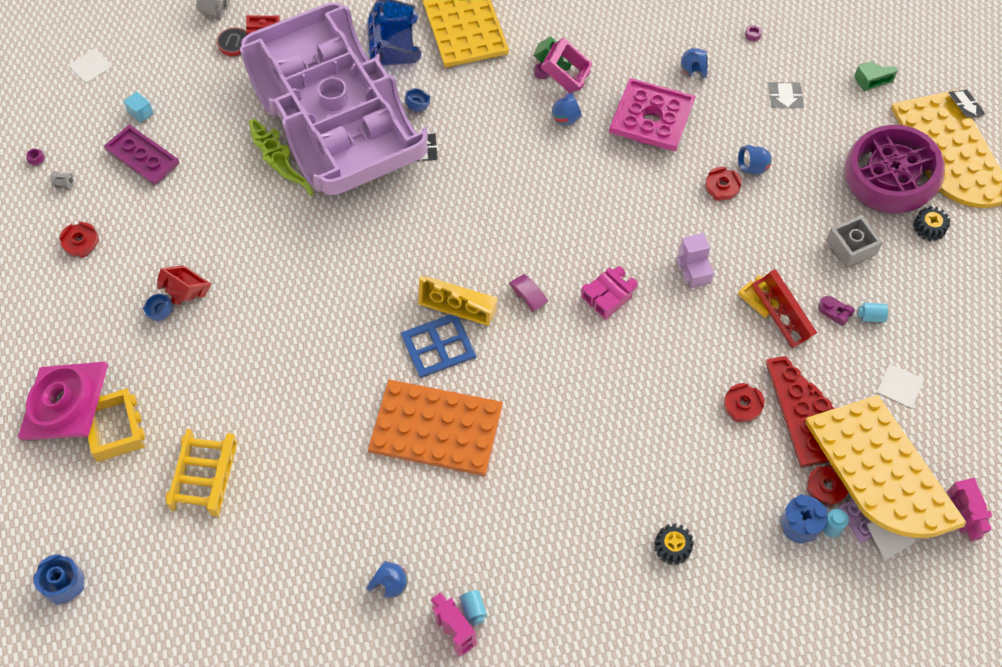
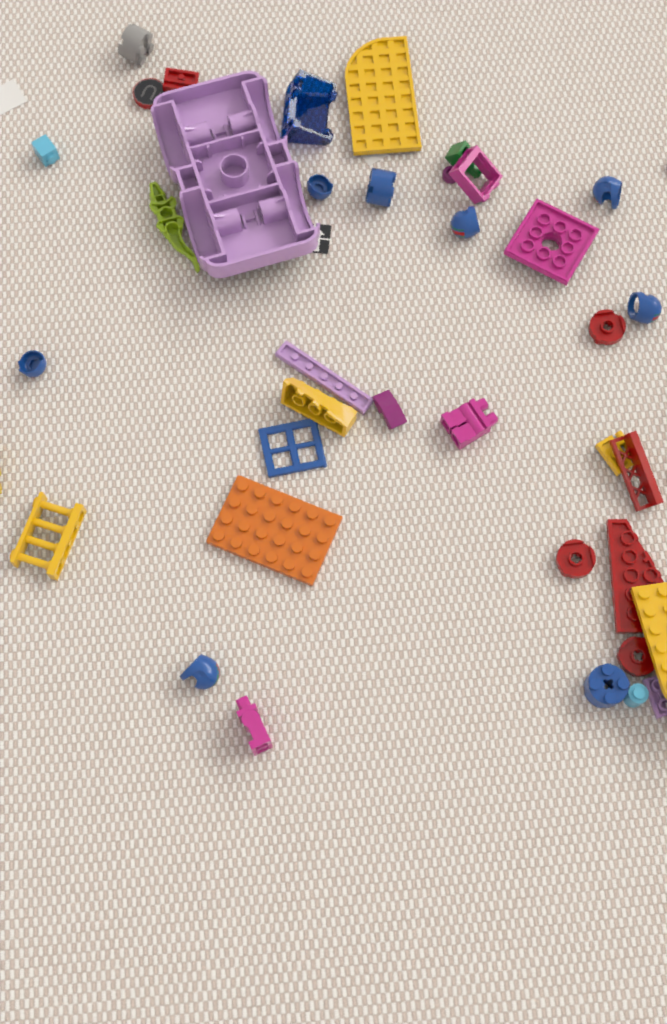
camera: 10 degrees right, 10 degrees up
(141, 154) = (41, 201): magenta plate -> none
(182, 284) = (58, 344): red brick -> none
(457, 273) = (324, 377): none -> lavender tile
(473, 607) = (275, 713): medium azure brick -> none
(477, 90) = (380, 187): none -> blue brick
(674, 536) = (476, 679): black wheel -> none
(694, 260) = (558, 405): lavender brick -> none

